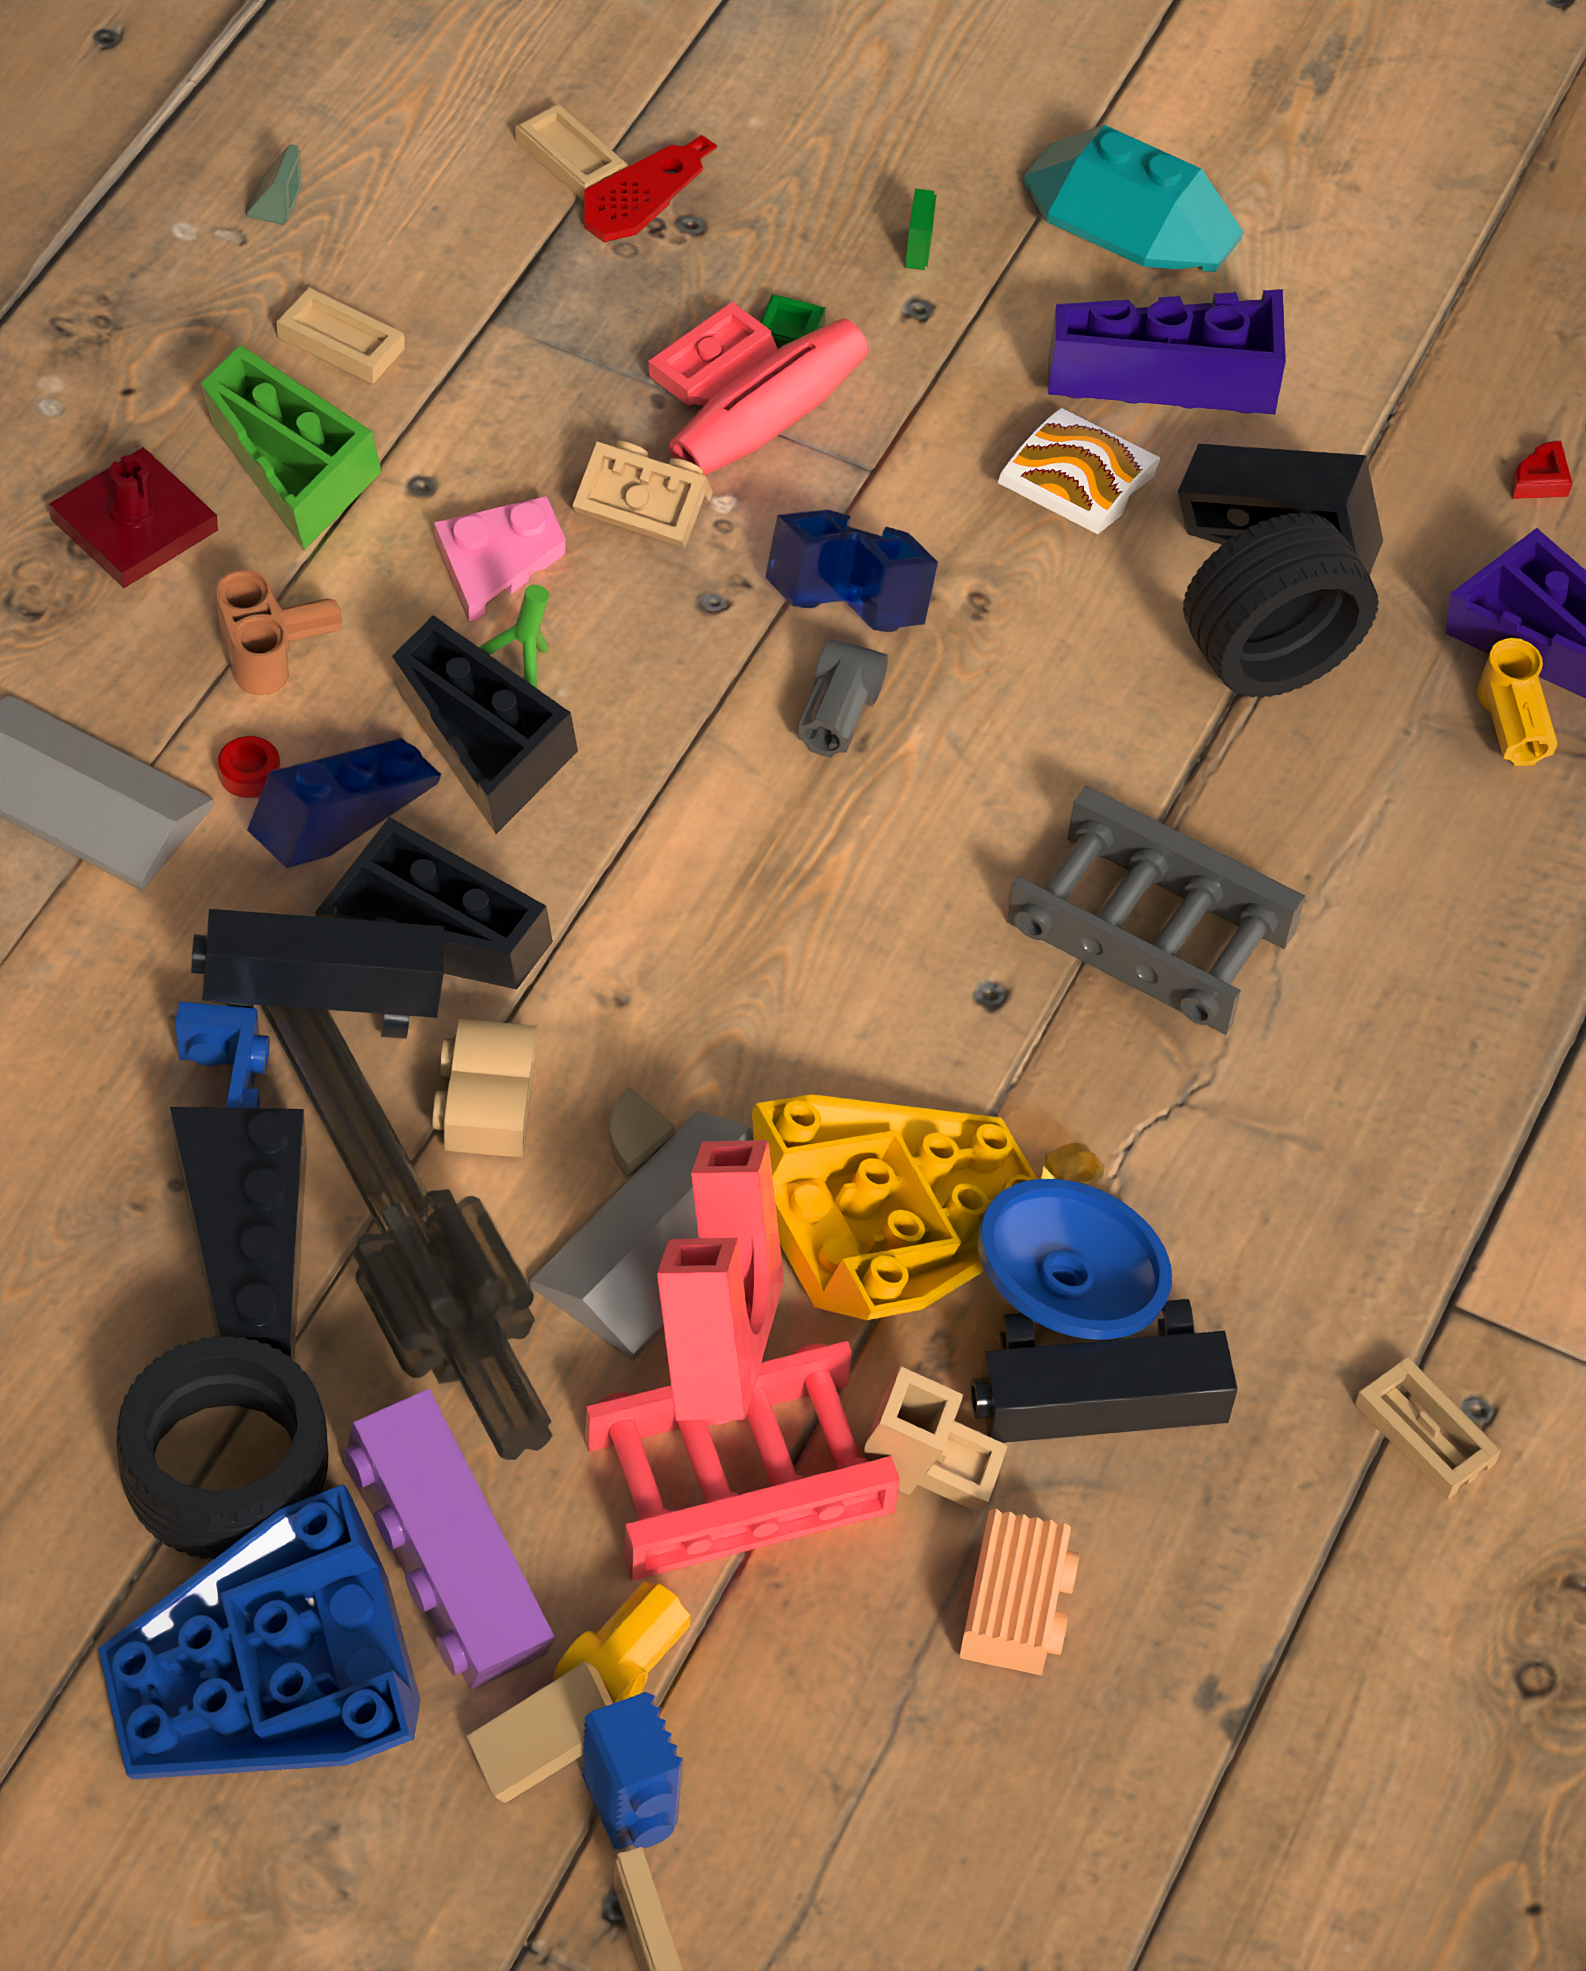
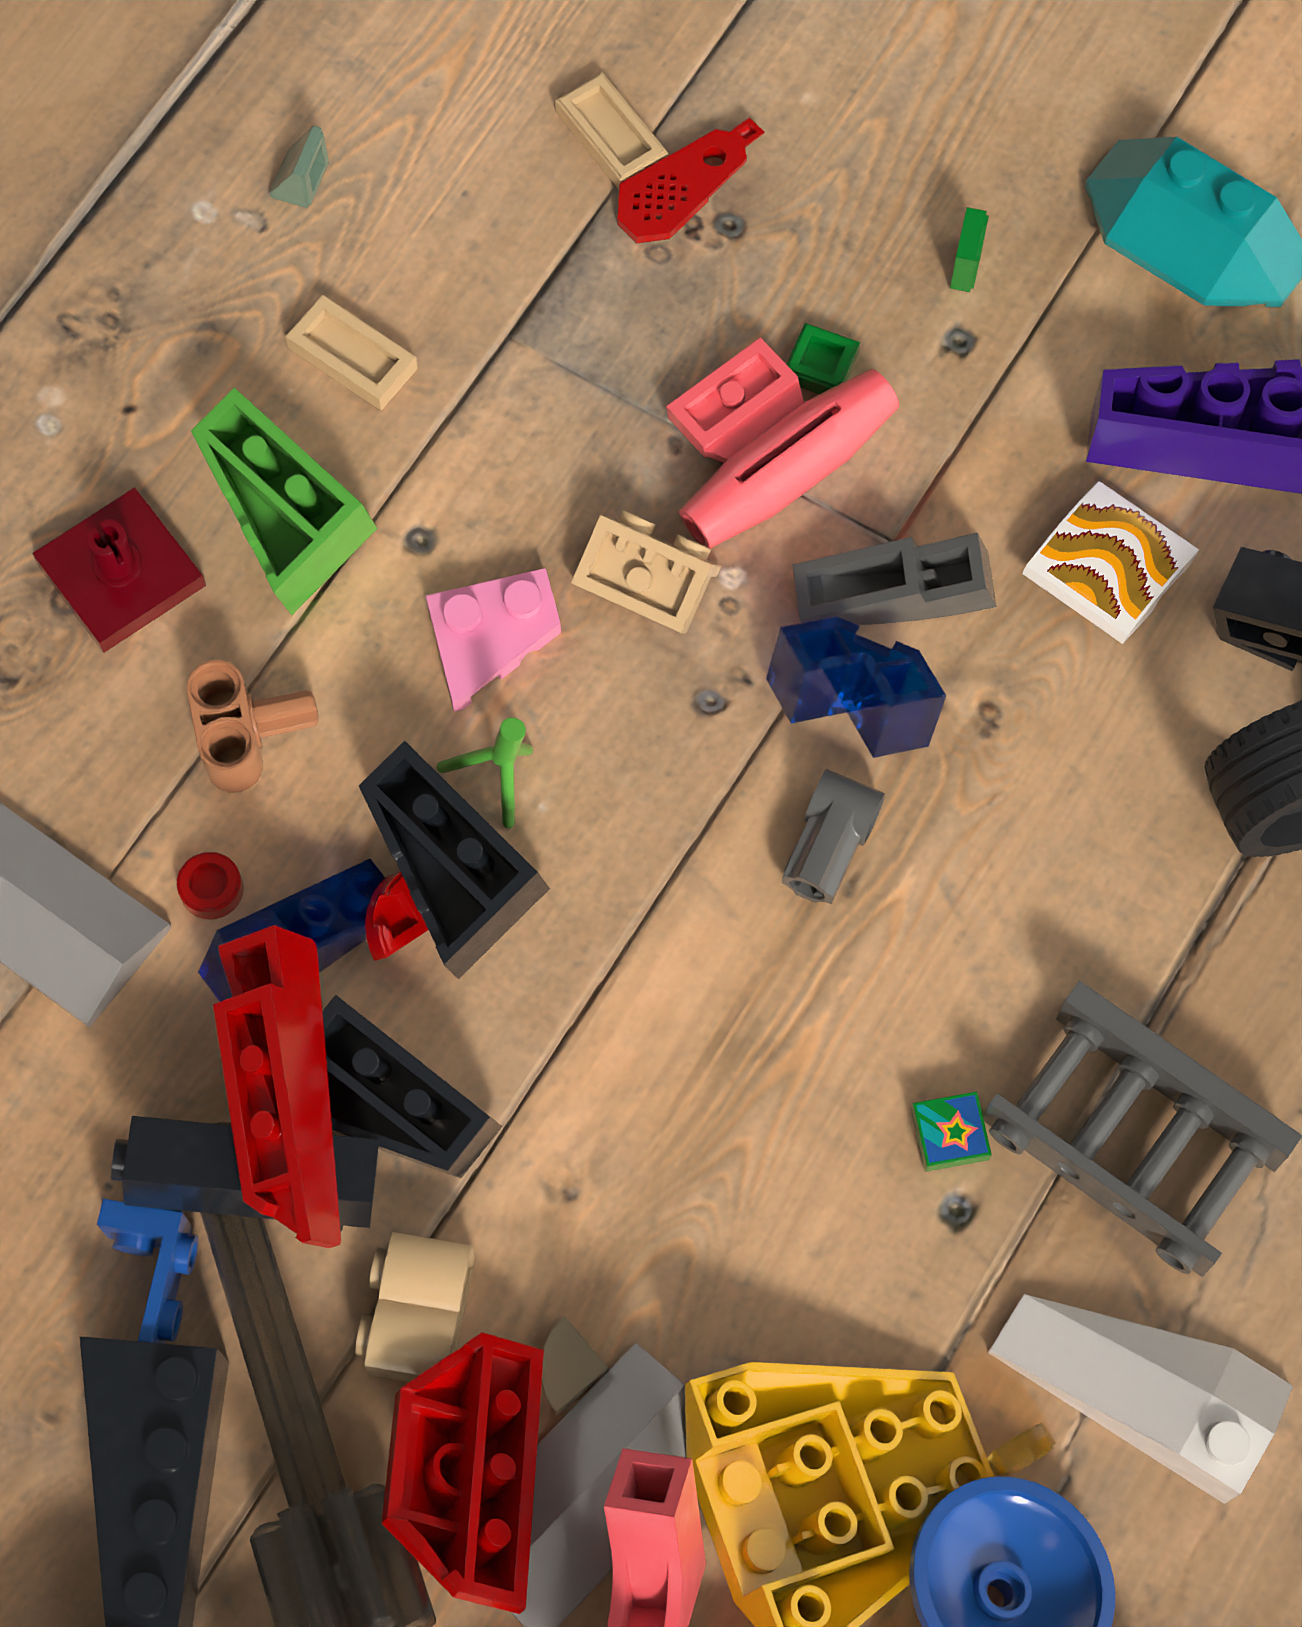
camera: 10 degrees right, 15 degrees up
(345, 872) = (279, 1081): none -> red wedge
(432, 777) = (392, 919): none -> red tile
(555, 1186) = (468, 1469): none -> red wedge
(887, 491) = (897, 582): none -> dark grey slope
(978, 927) = (951, 1131): none -> tile
(1199, 1125) = (1165, 1393): none -> white wedge

